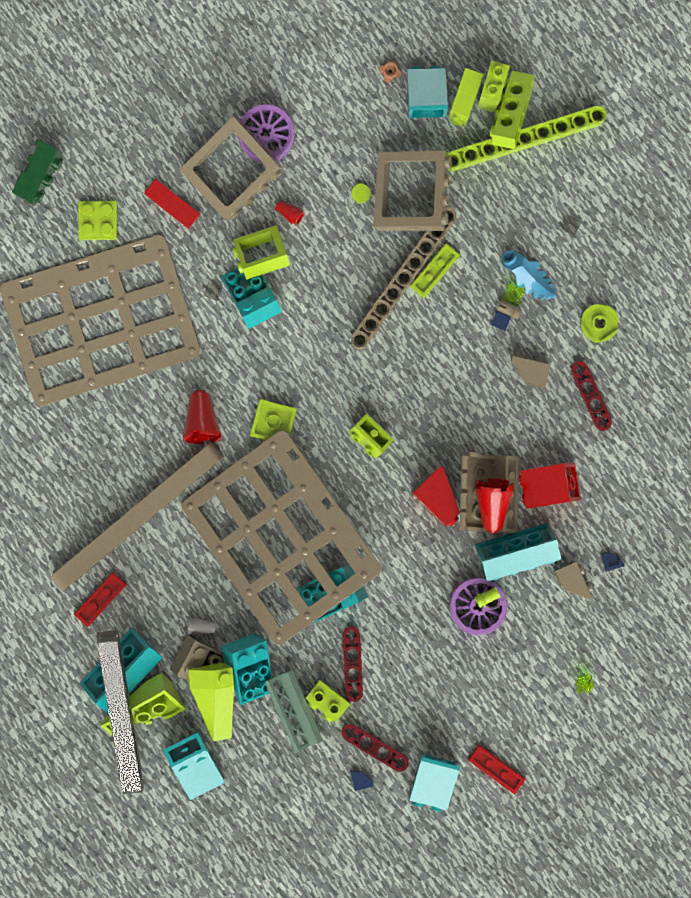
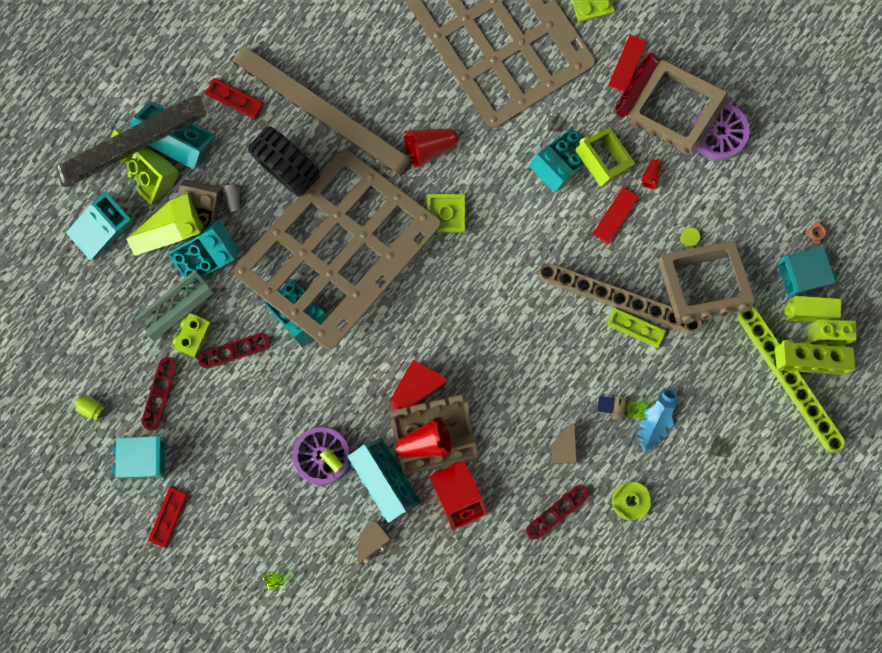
camera: 75 degrees right, 5 degrees down
(182, 566) = (284, 161): none -> black tyre
(197, 201) = (636, 85): none -> dark red beam
(320, 259) = (615, 215): none -> red tile
(361, 780) = (124, 388): dark blue tile -> none
(370, 436) = (457, 307): lime brick -> none
(370, 819) = (89, 407): none -> lime brick
(611, 561) = (400, 576): dark blue tile -> none

